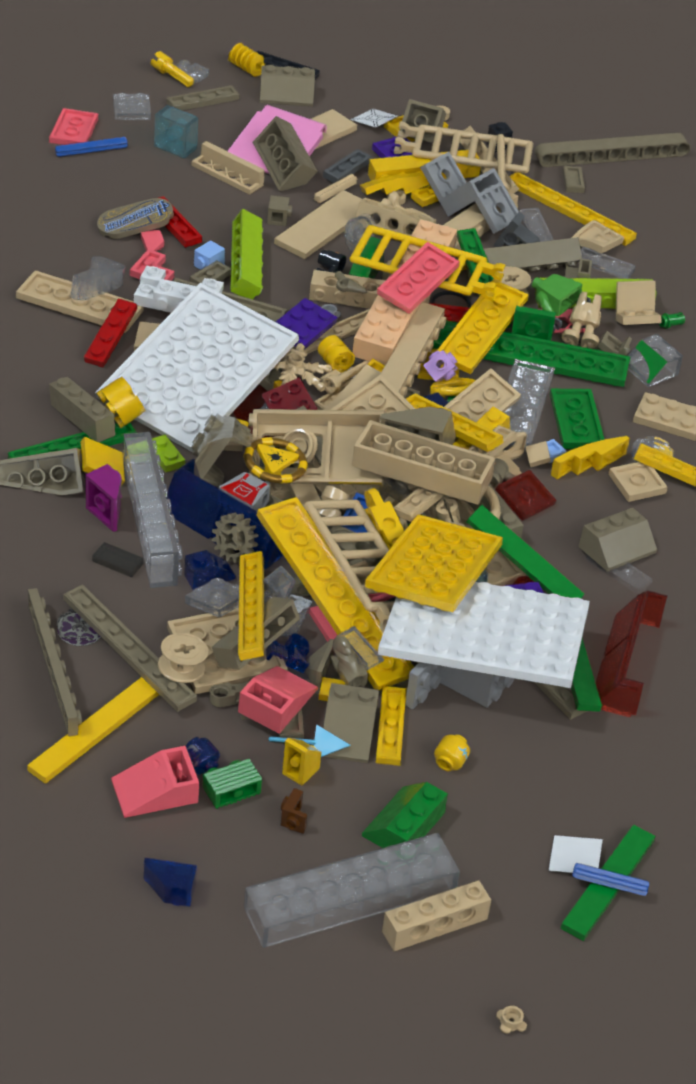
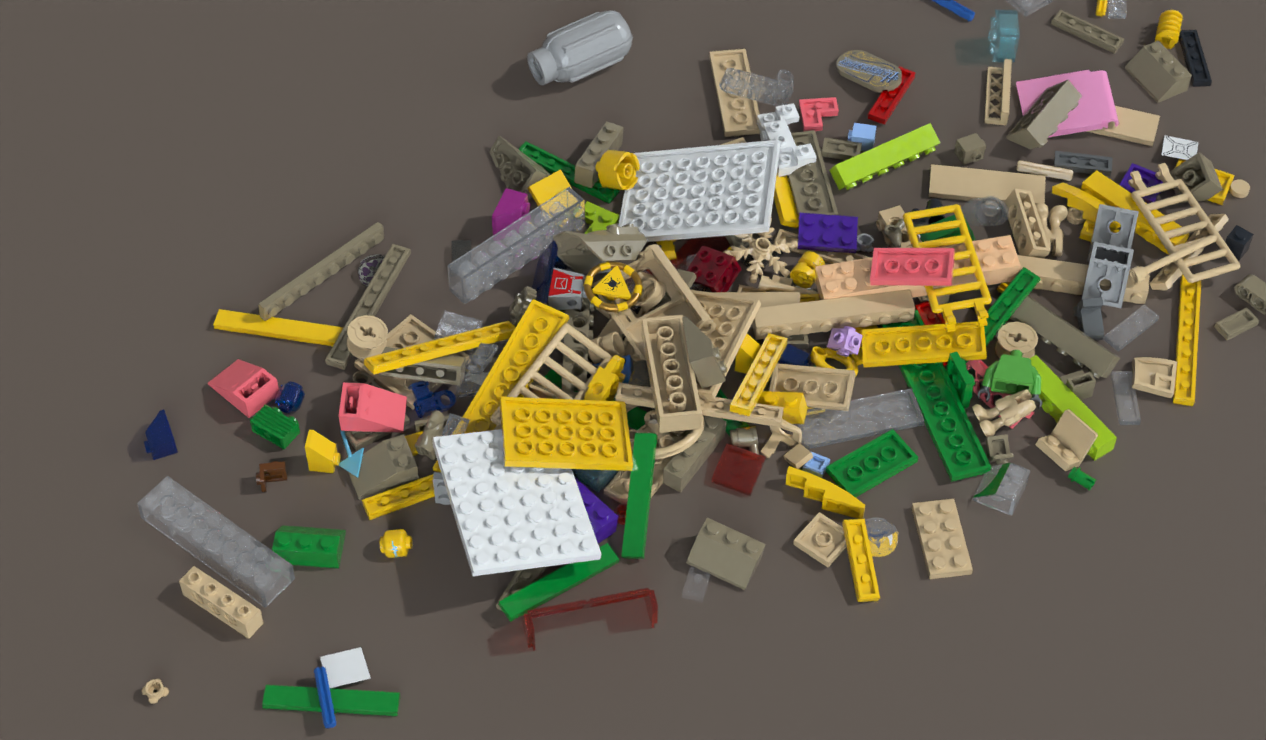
camera: 65 degrees right, 10 degrees up
(110, 333) = (709, 127): red plate -> none
(152, 240) = (856, 96): coral tile -> none
(205, 566) = (484, 308): clear blue slope -> none

